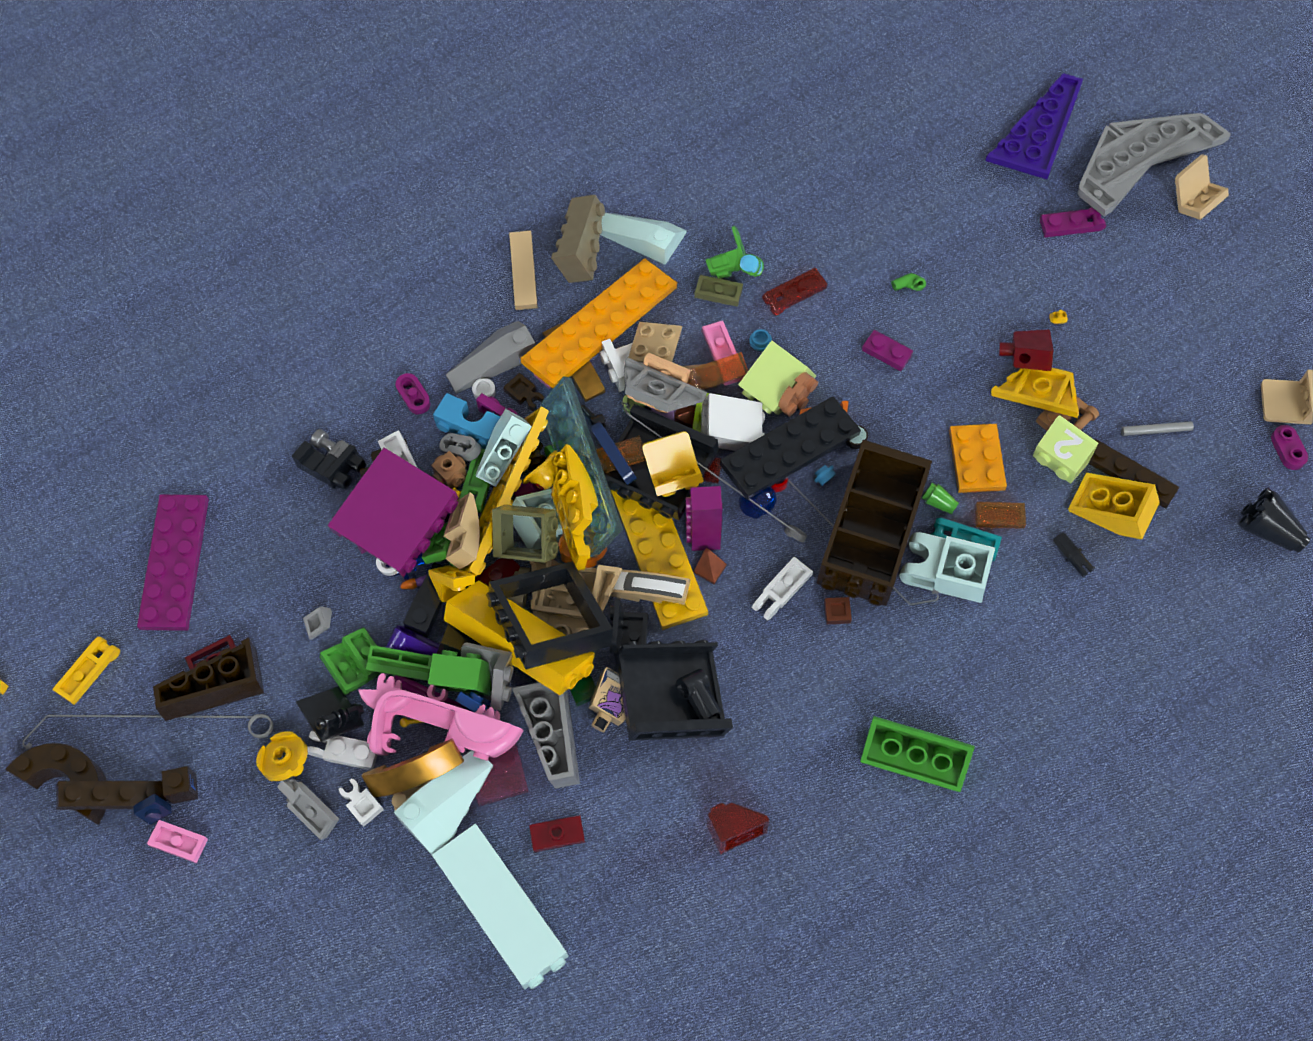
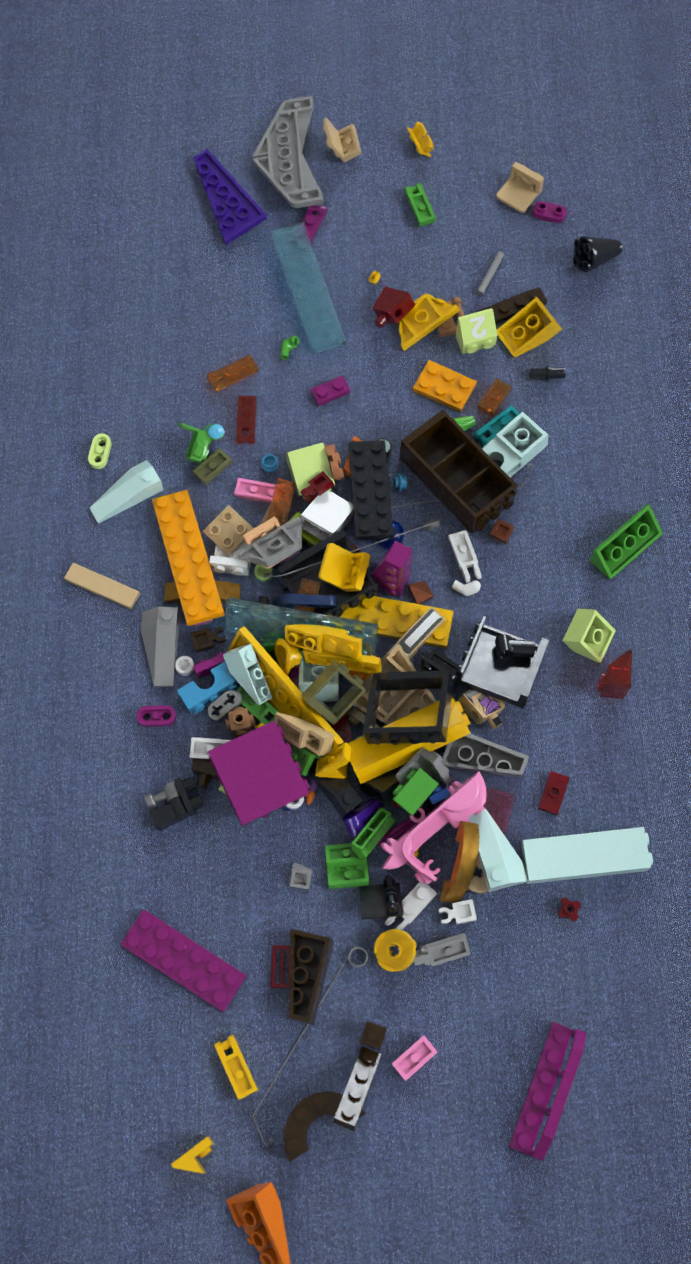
camera: 60 degrees left, 5 degrees up
(152, 809) = (382, 1064): dark blue plate -> none
(208, 998) = (541, 1089): none -> magenta plate
(435, 924) = (566, 903): none -> dark red plate
(580, 239) = (103, 528): dark tan wedge -> none
(665, 184) = (98, 452): none -> yellowish green plate
(745, 613) = (467, 589): none -> white arm
(758, 393) = (318, 485): none -> dark red plate
(771, 772) = (589, 634): none -> yellowish green slope
(840, 250) = (232, 373): none -> clear orange plate
(992, 260) = (308, 288): none -> clear light blue plate
(1185, 311) = (420, 204): none -> bright green plate
(1268, 265) = (423, 145): none -> yellow hinge

